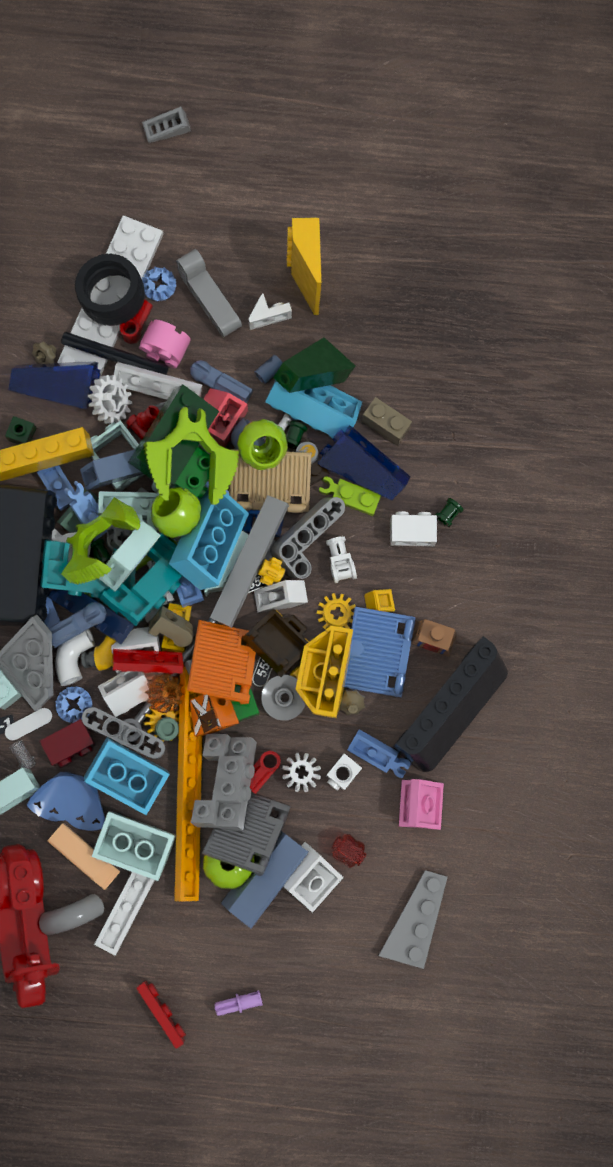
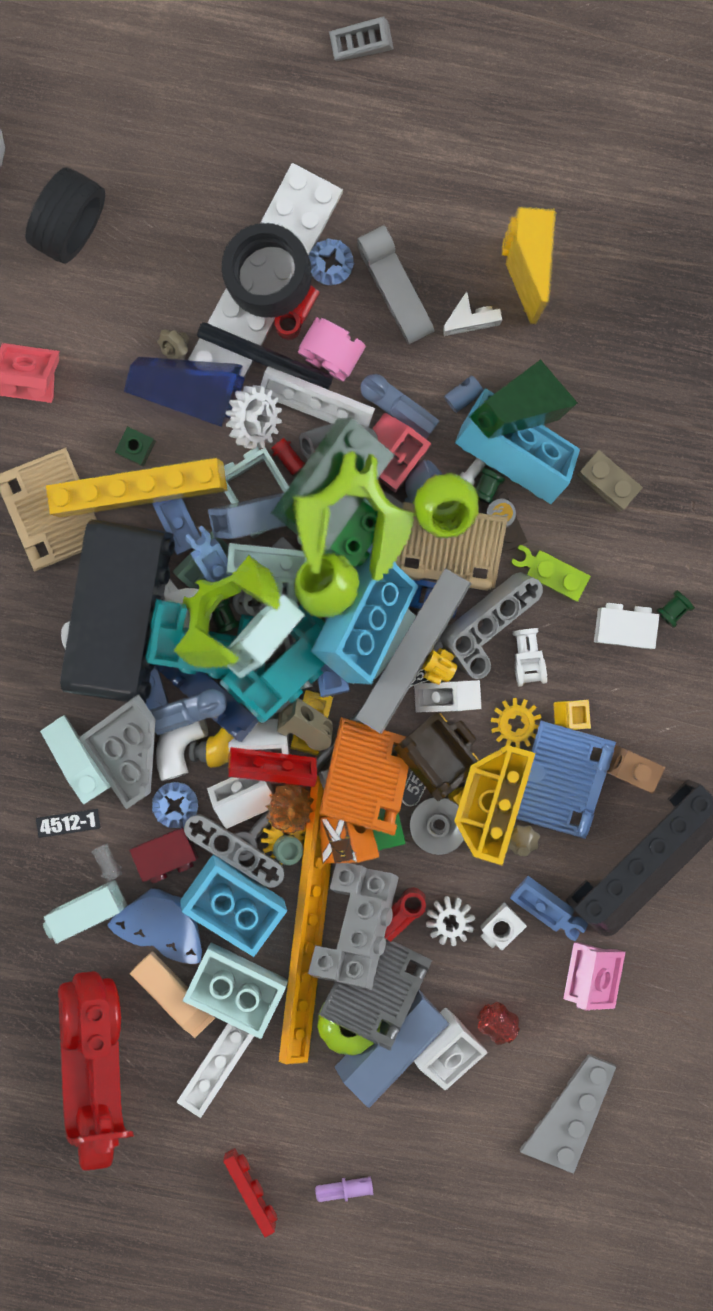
camera: 15 degrees right, 10 degrees up
(28, 724) = (116, 822): white sticker -> none
(71, 915) = (152, 1066): light grey cylinder -> none
(146, 418) = (298, 448): red pin -> none
(363, 463) = (573, 536): clear blue slope -> none

